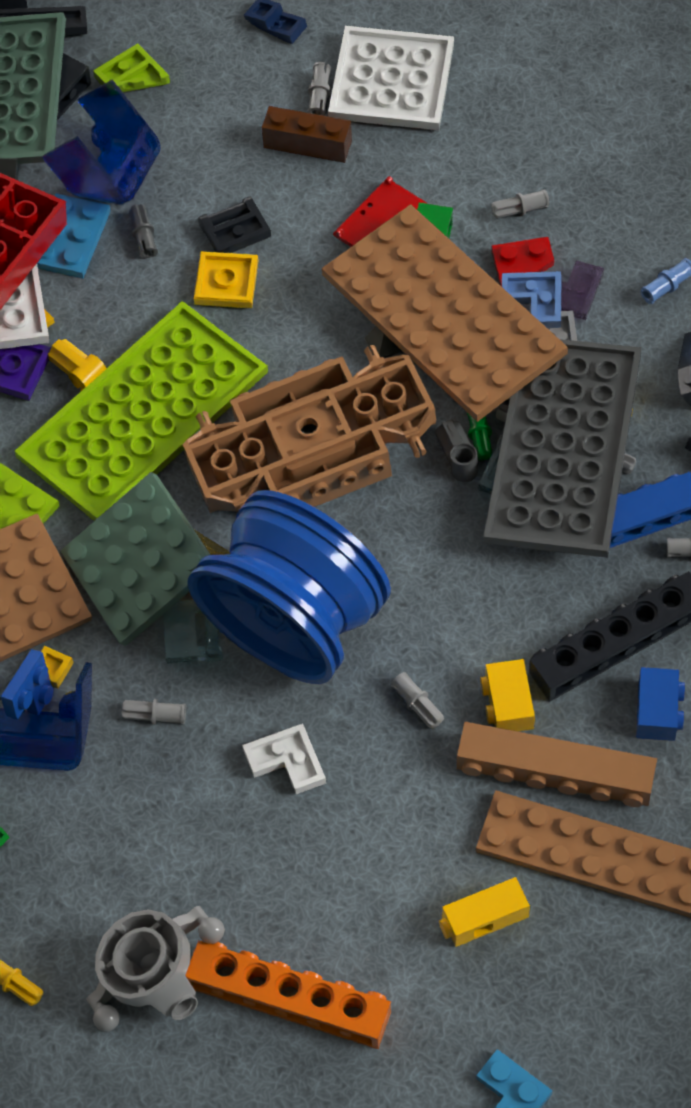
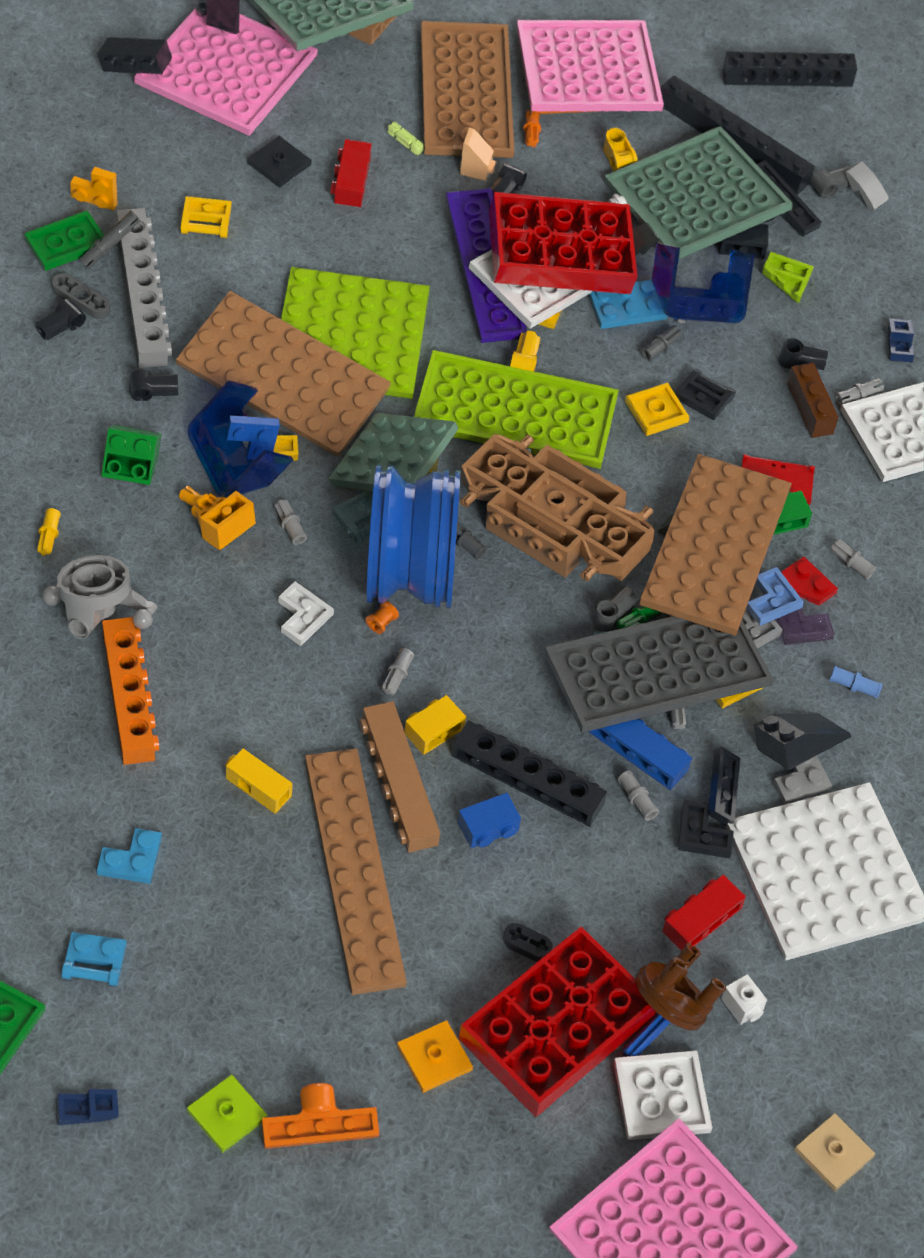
camera: 50 degrees right, 5 degrees down
(105, 781) = (220, 517): none -> light orange brick
(240, 115) = (795, 353): none -> black piece
(341, 684) = (382, 617): none -> orange bush

